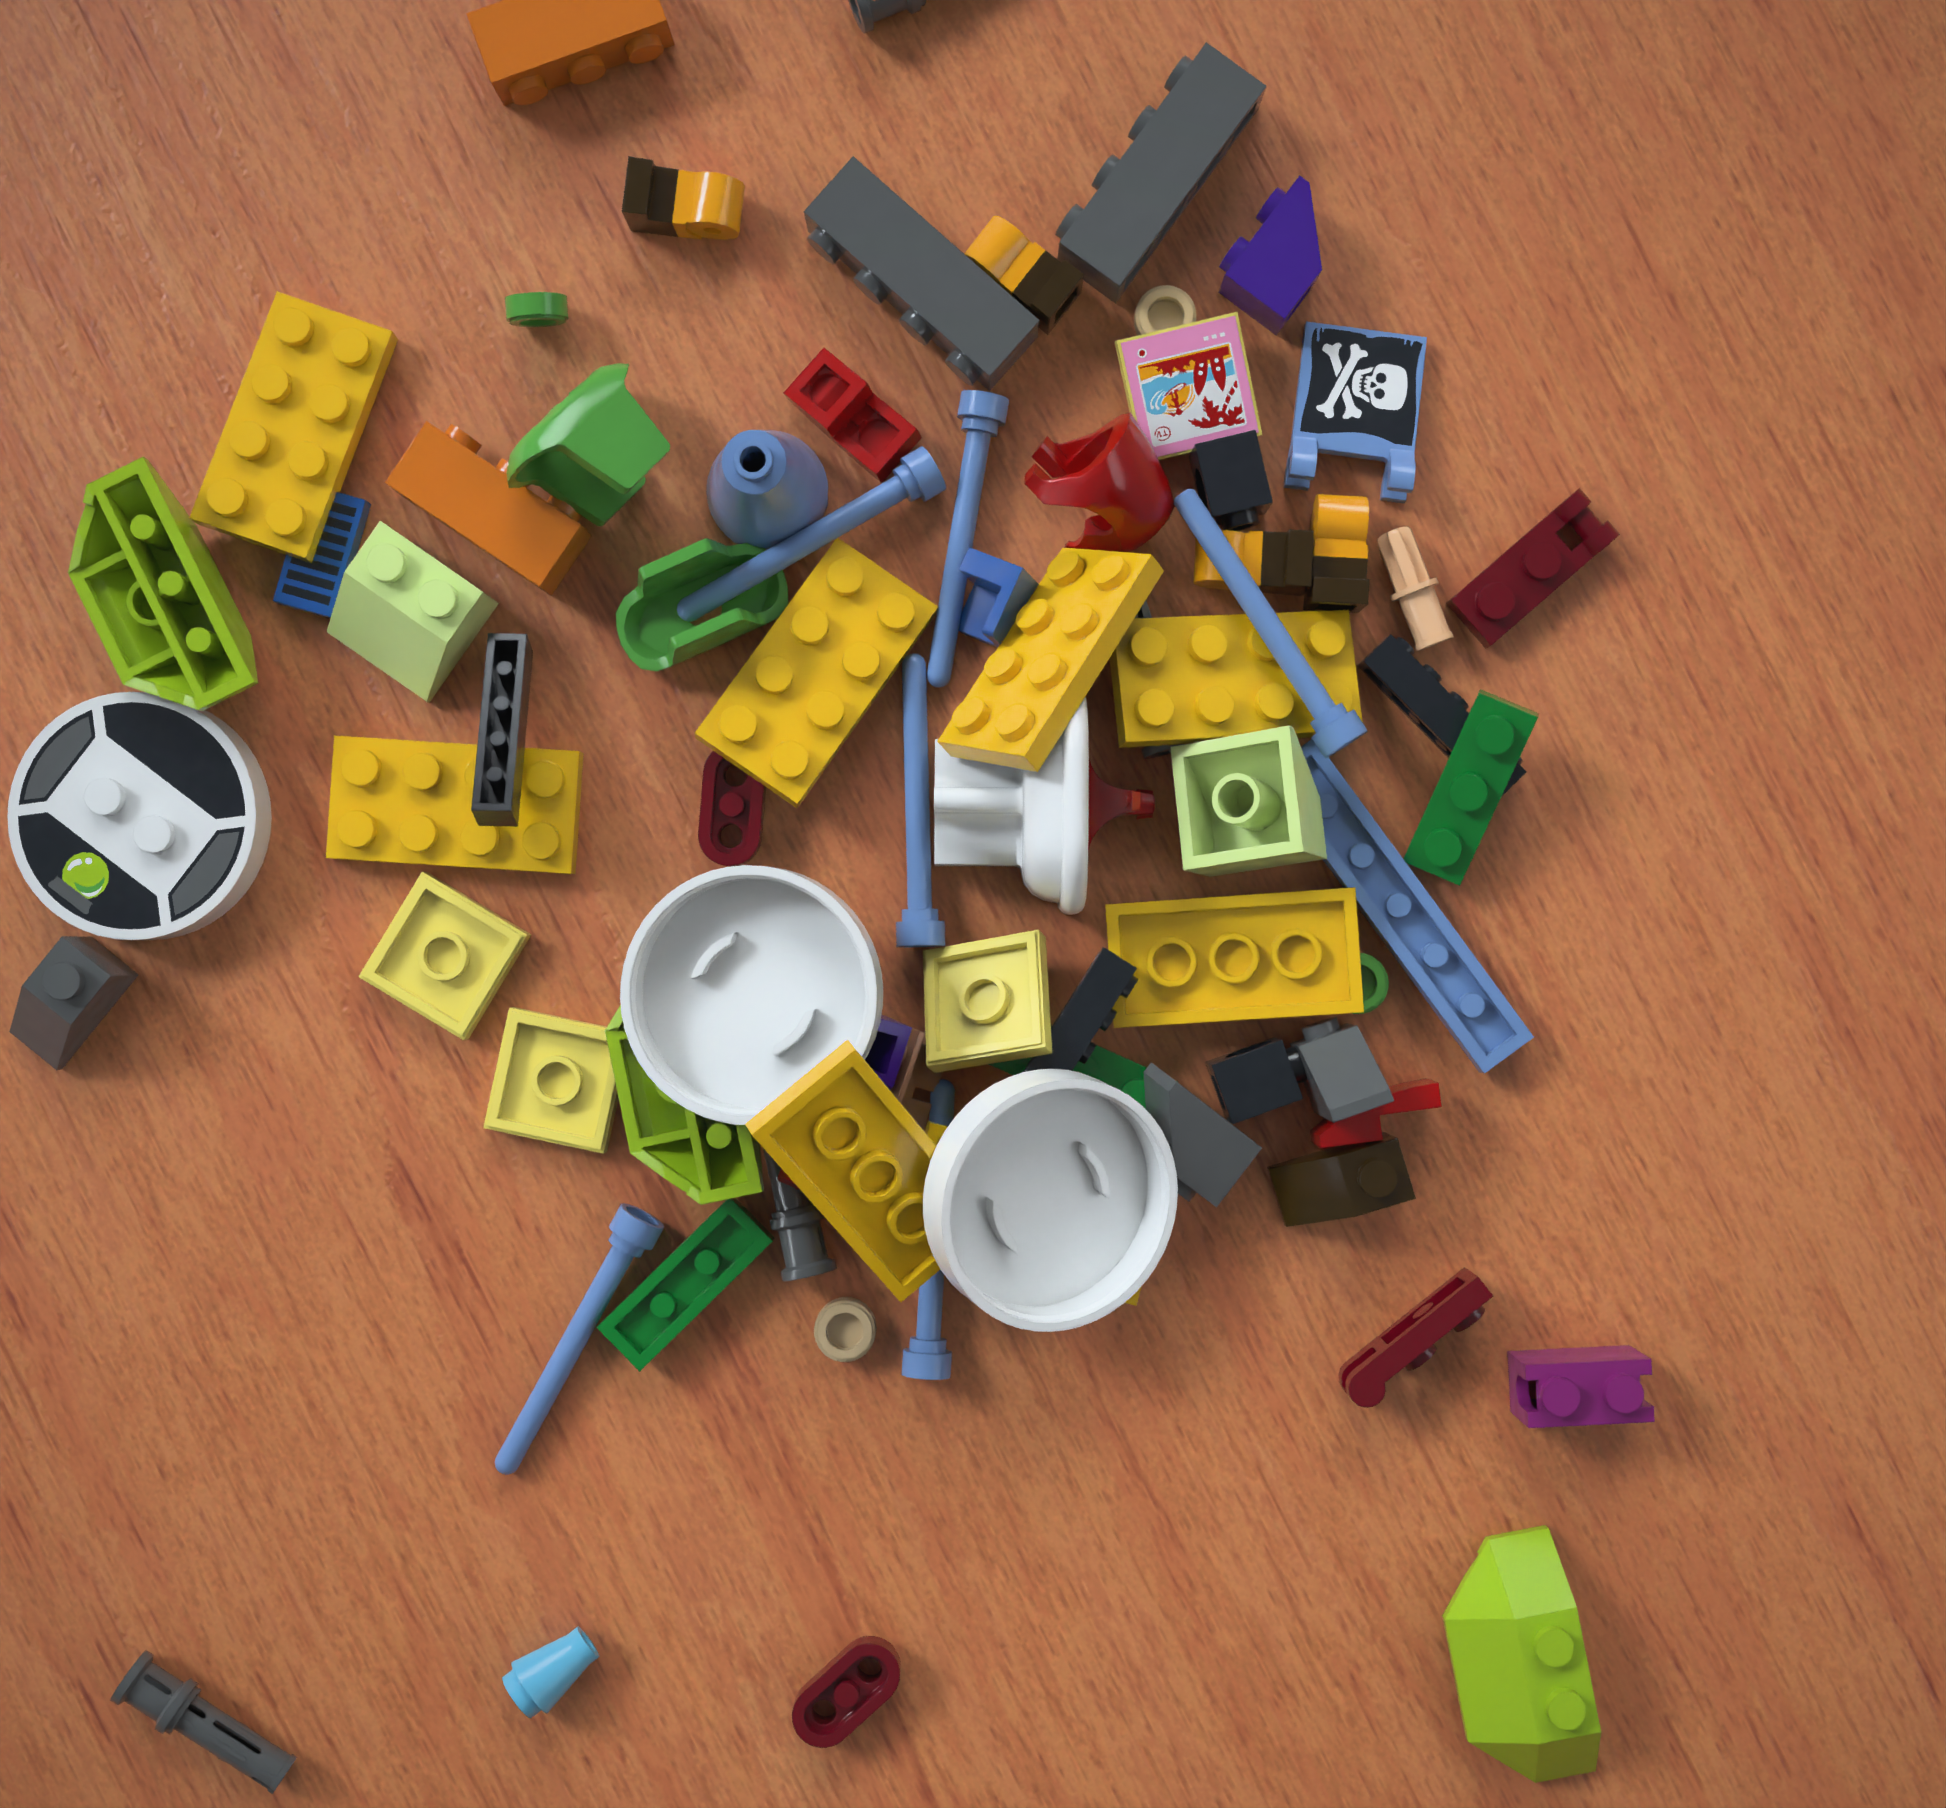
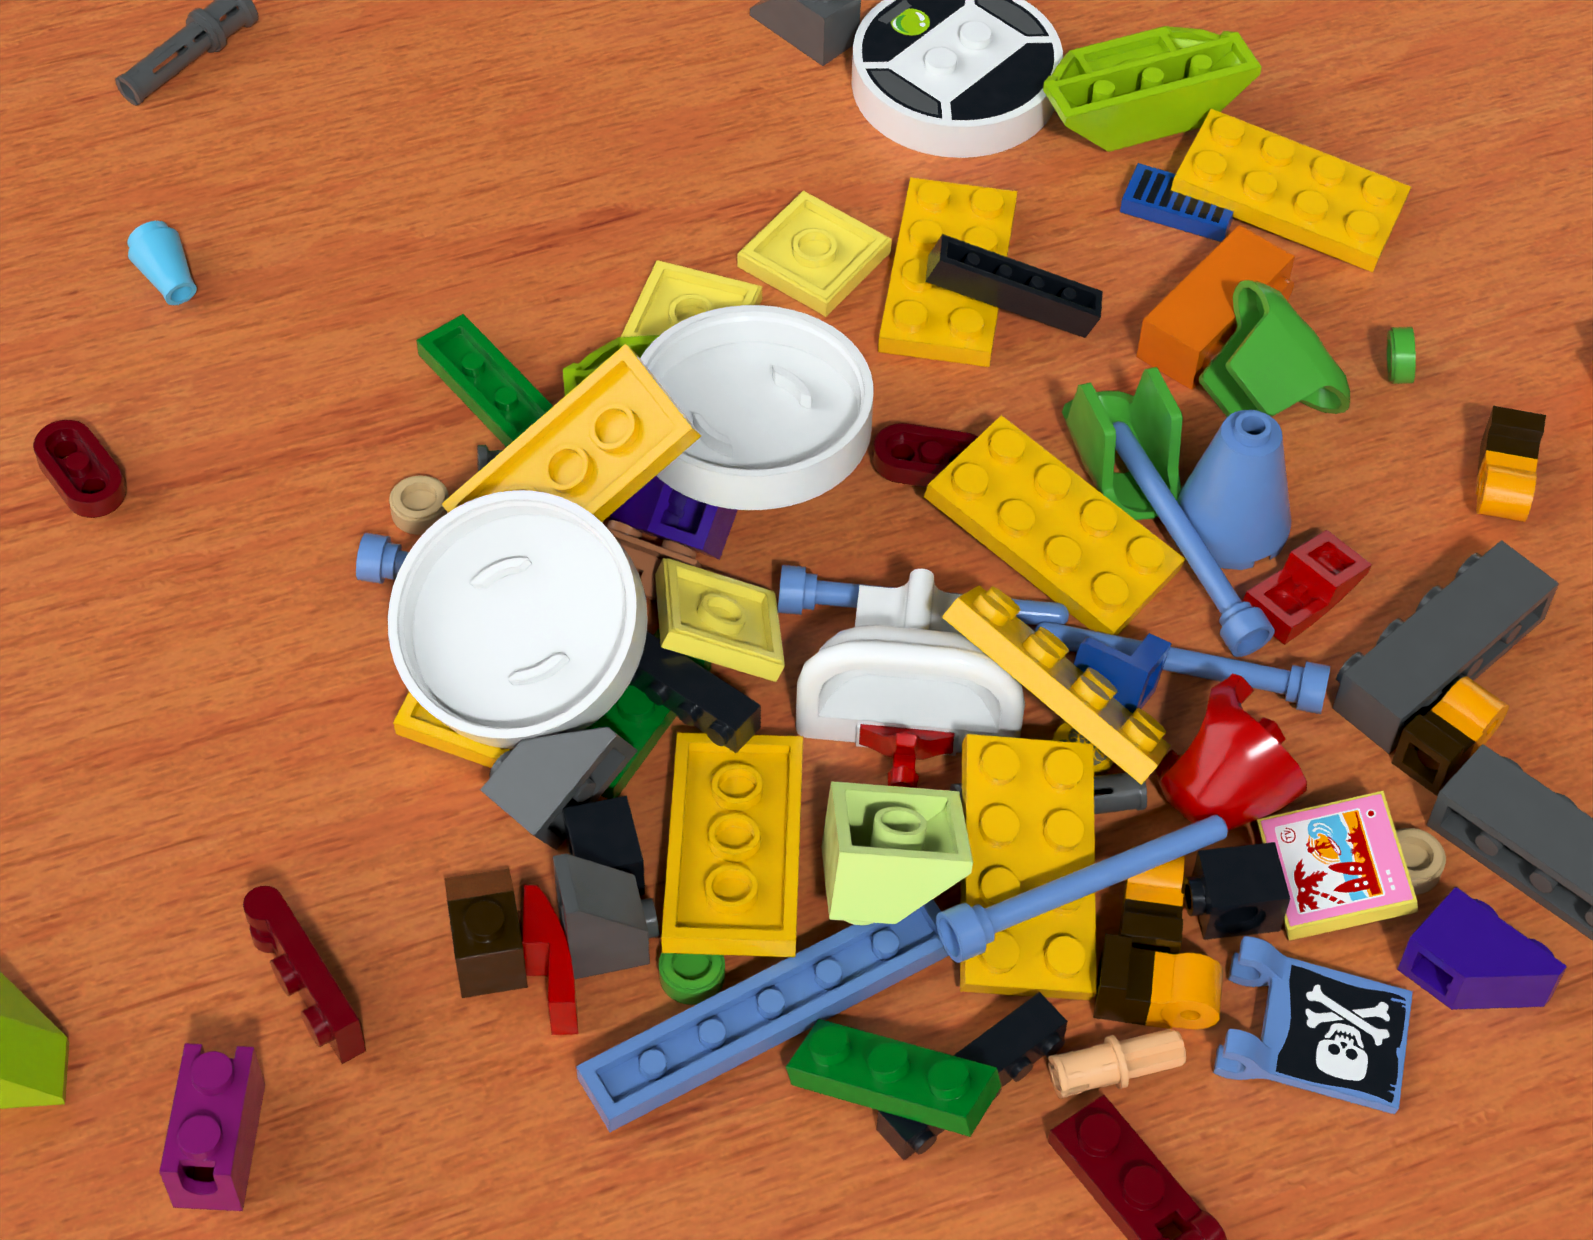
camera: 90 degrees right, 35 degrees down
(407, 612) = (1131, 248): yellowish green slope -> none
(631, 1235) = (542, 352): medium blue piece -> none

